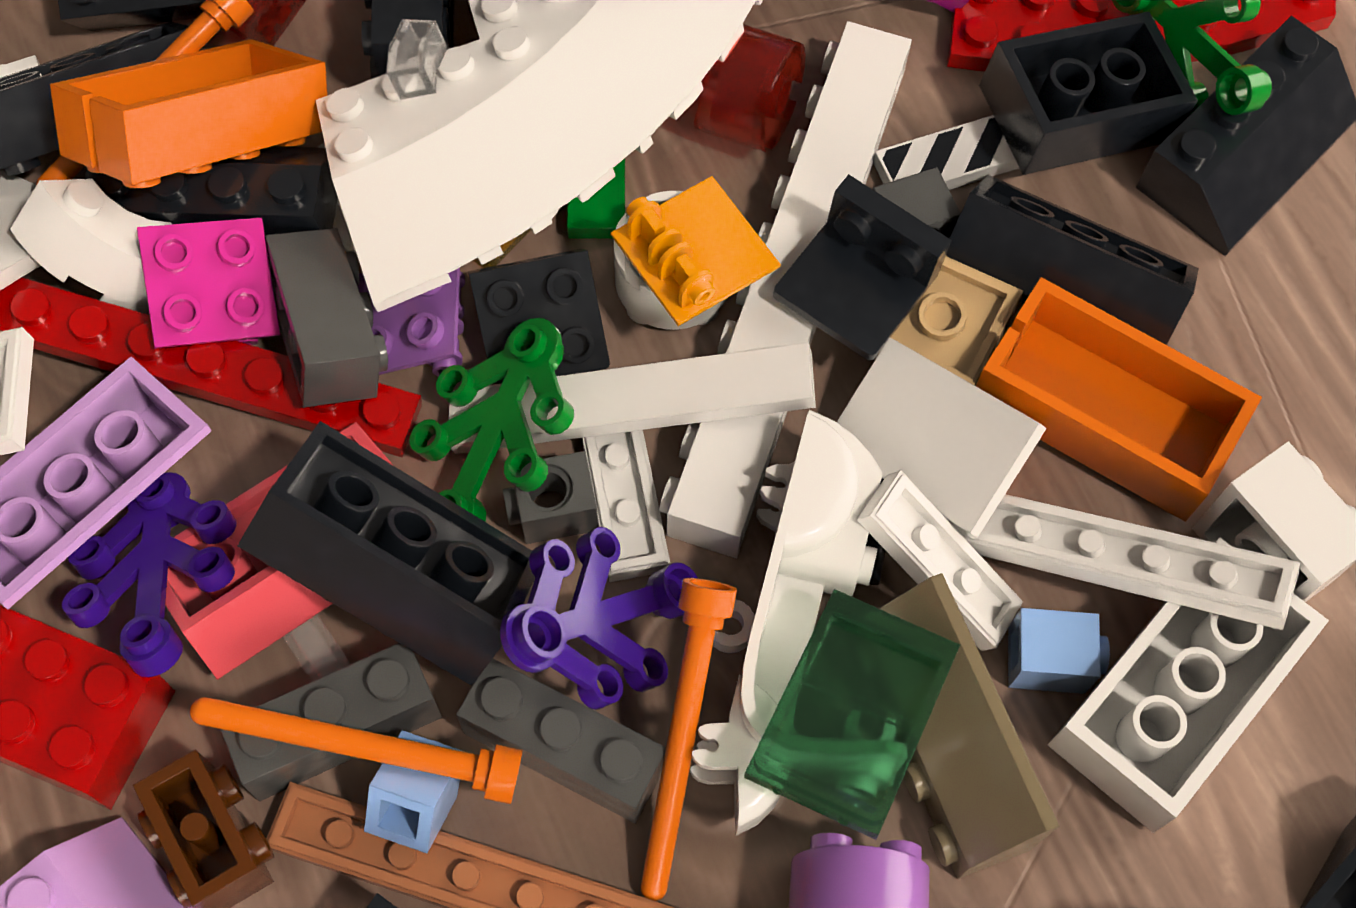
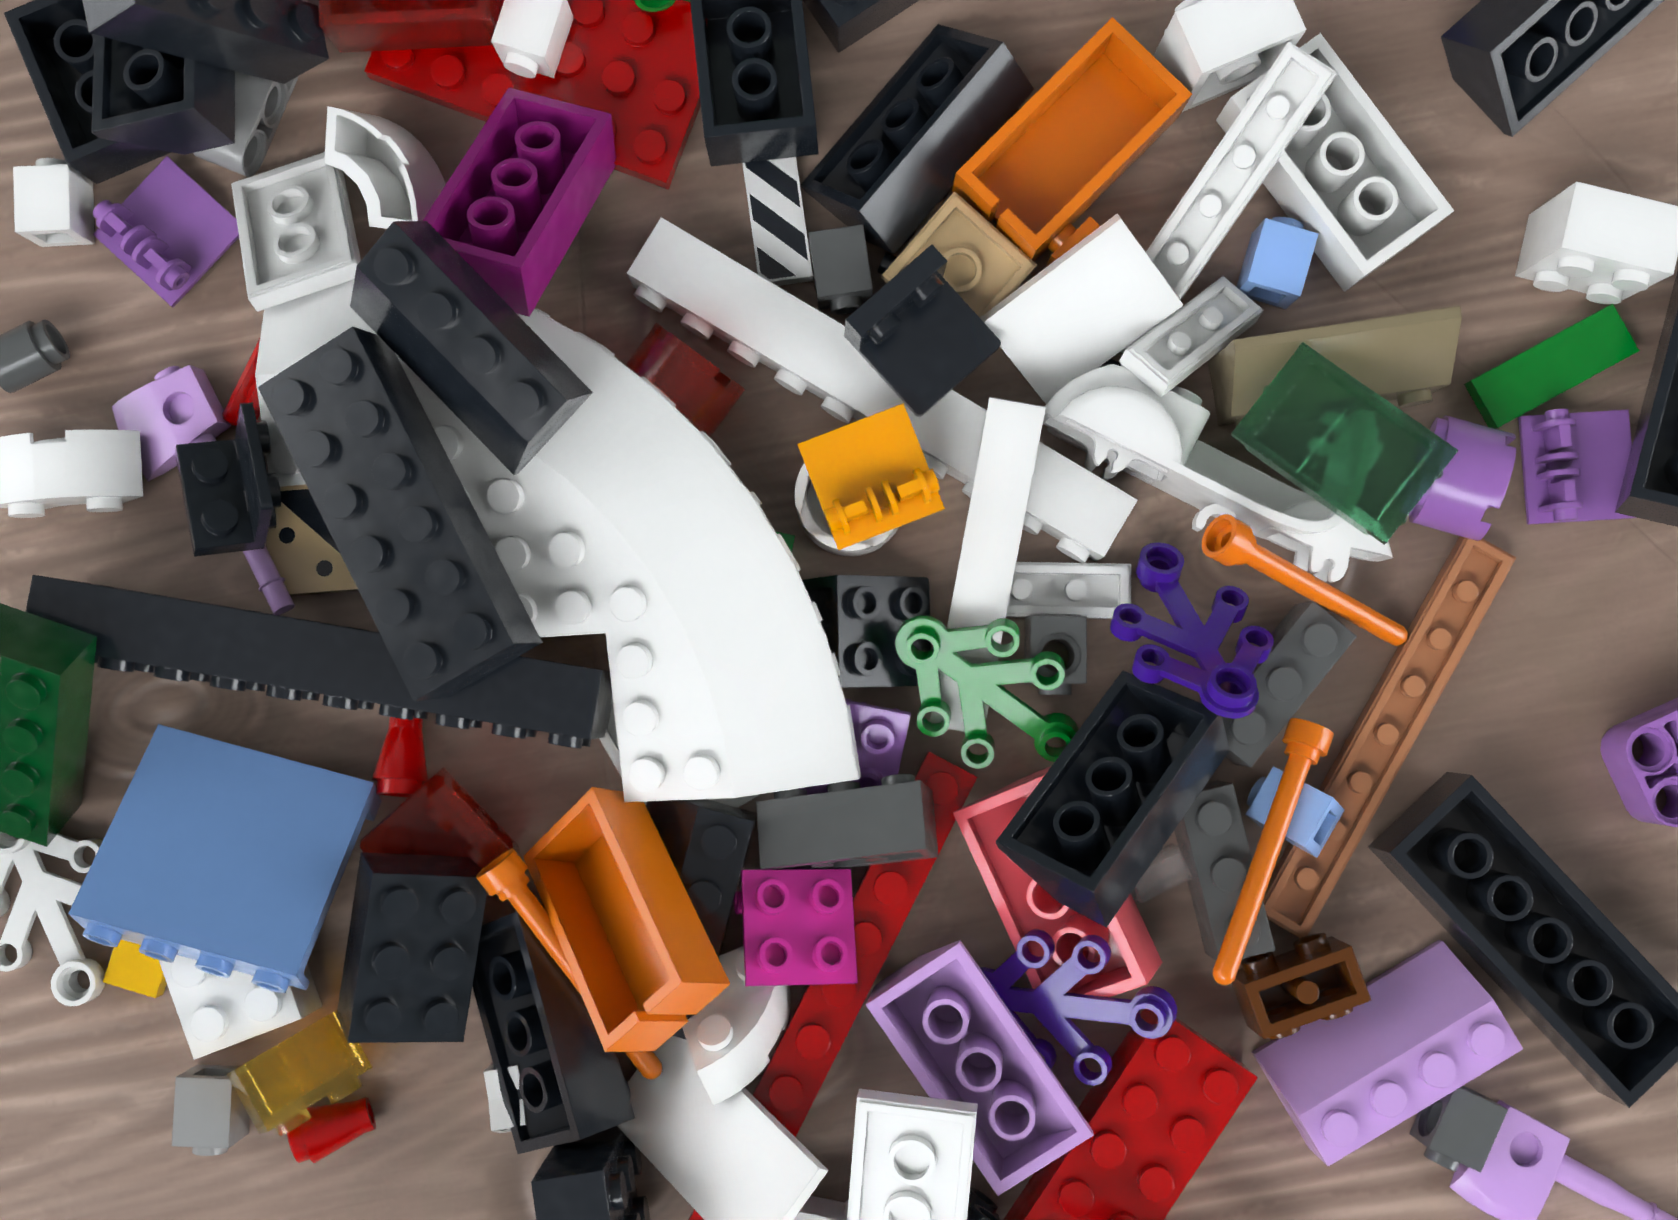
camera: 75 degrees left, 20 degrees up
(415, 58) = (630, 698): clear piece -> none

